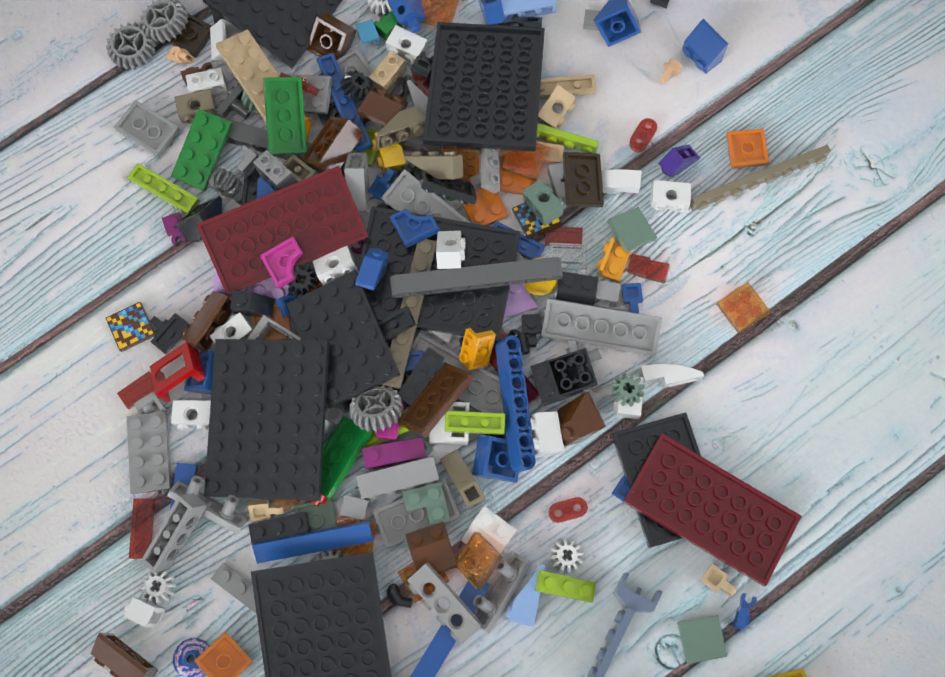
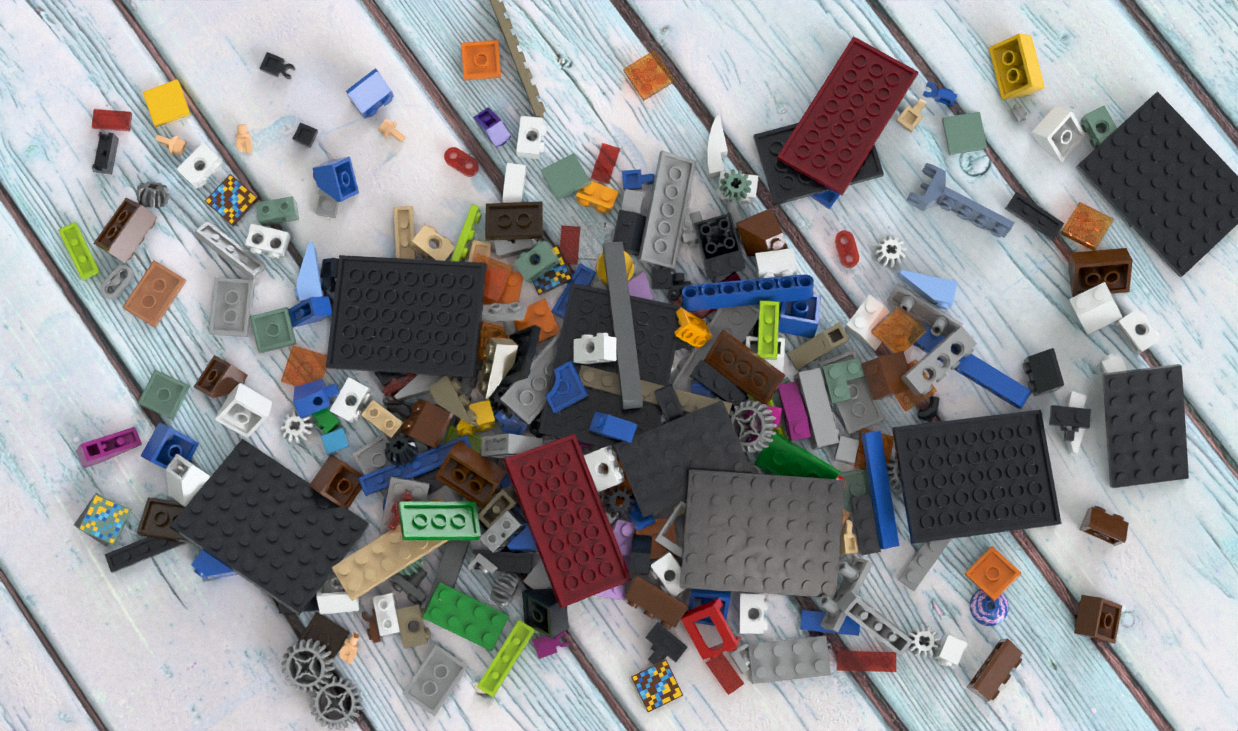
camera: 90 degrees left, 5 degrees up
(281, 261) = (601, 520): dark pink tile -> none
(422, 65) = (380, 381): black plate -> none
(565, 586) = (919, 252): lime plate -> none

